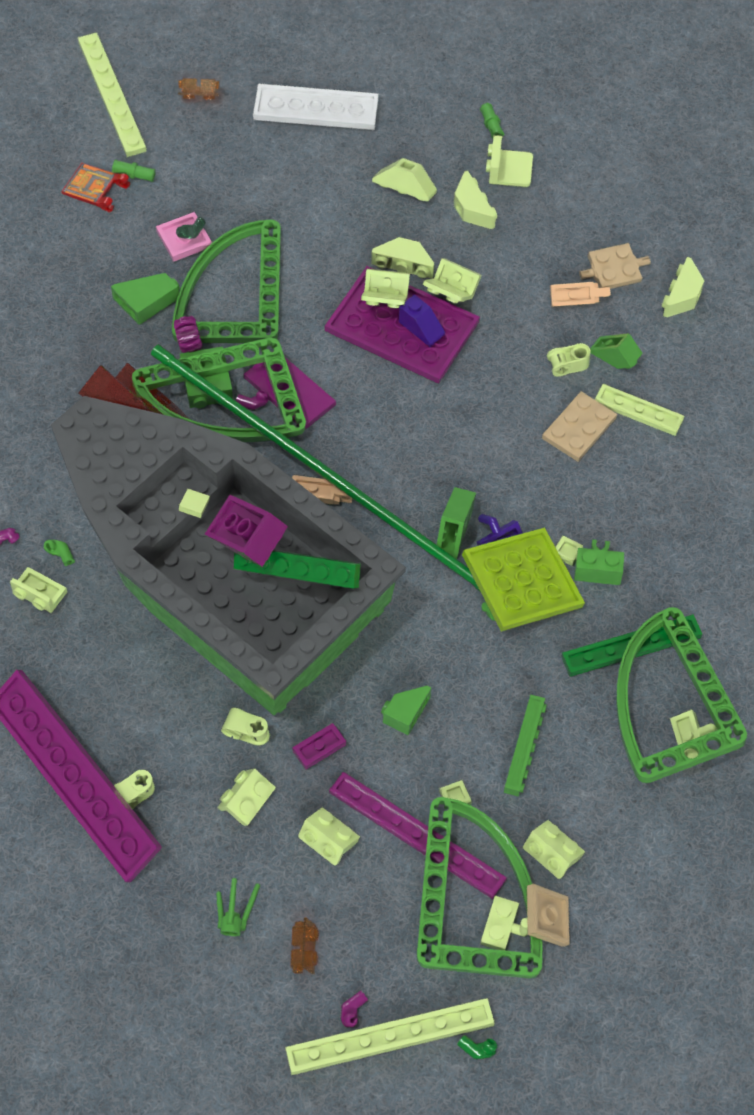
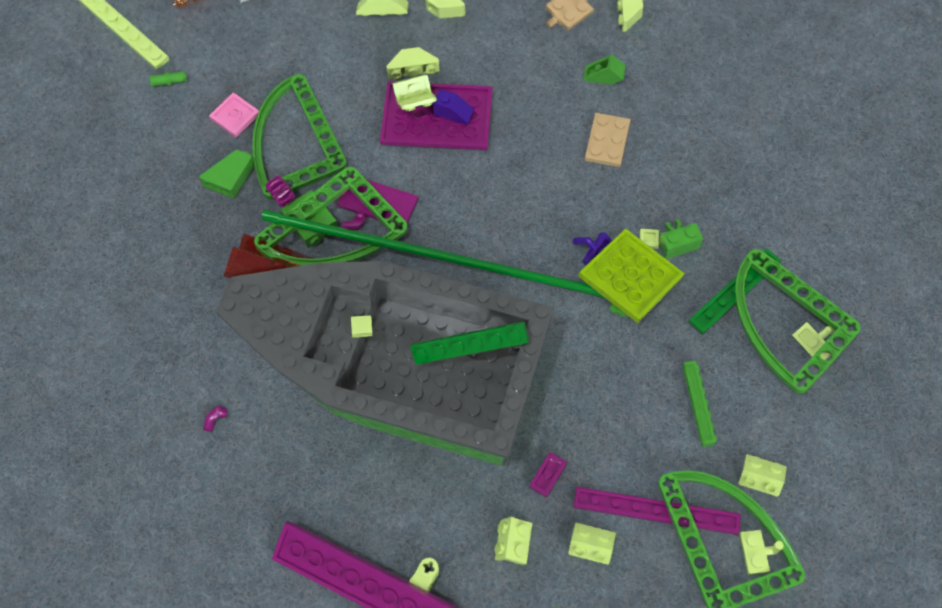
camera: 20 degrees left, 5 degrees up
(38, 589) = (265, 447): yellowish green bracket -> none
(59, 549) = (265, 406): bright green arm -> none
(92, 184) = (141, 102): flag -> none
(191, 231) = (239, 108): clear green arm -> none
(243, 725) = (482, 485): yellowish green piece -> none
(246, 530) = (416, 331): magenta slope -> none
(323, 490) = (445, 269): light nougat hinge -> none
(405, 708) = (597, 416): bright green slope -> none
(453, 281) = (459, 67): yellowish green bracket -> none
(455, 520) = (558, 251): bright green slope -> none
(456, 791) = (668, 464): yellowish green tile -> none
(547, 915) = (789, 530): tan tile -> none
(568, 359) = (572, 94): yellowish green piece -> none
(577, 294) = (553, 40): light nougat hinge -> none
(639, 409) = (644, 108): yellowish green tile -> none

